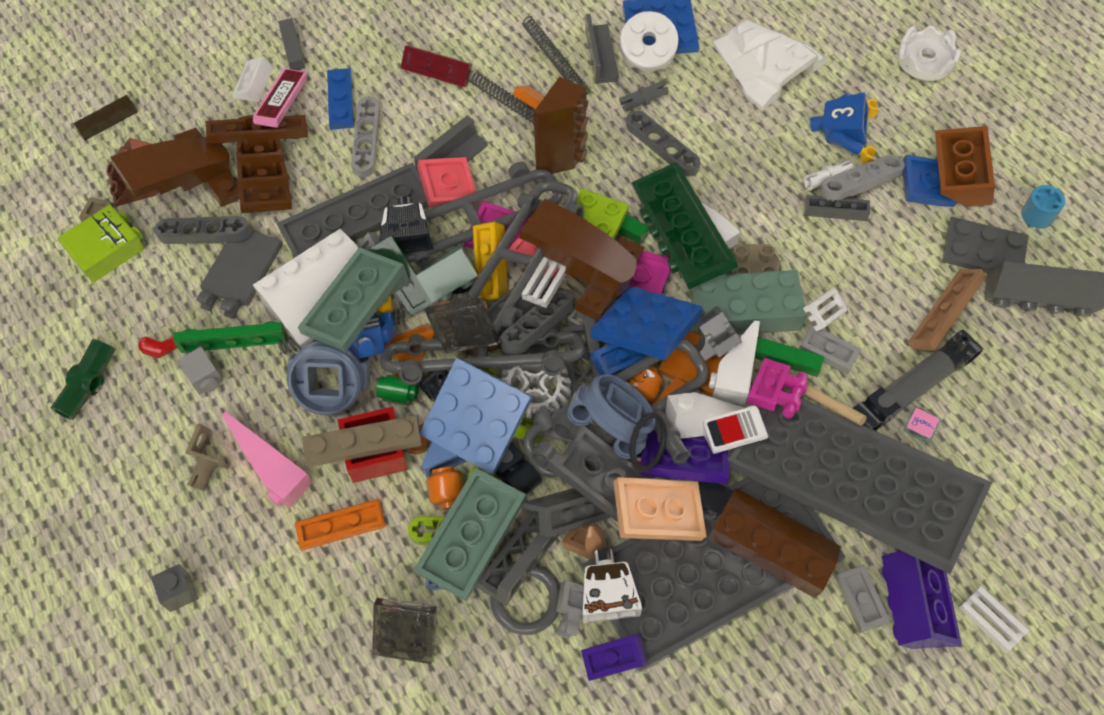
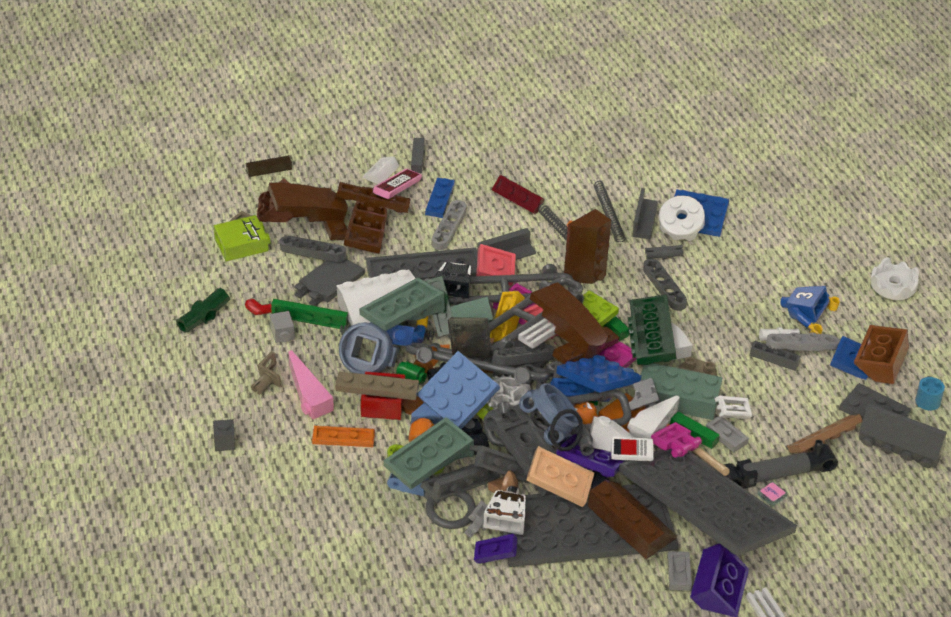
camera: 15 degrees right, 20 degrees down
(404, 630) = (364, 495): clear smoke plate -> none
(765, 59) = (766, 250): white wedge -> none

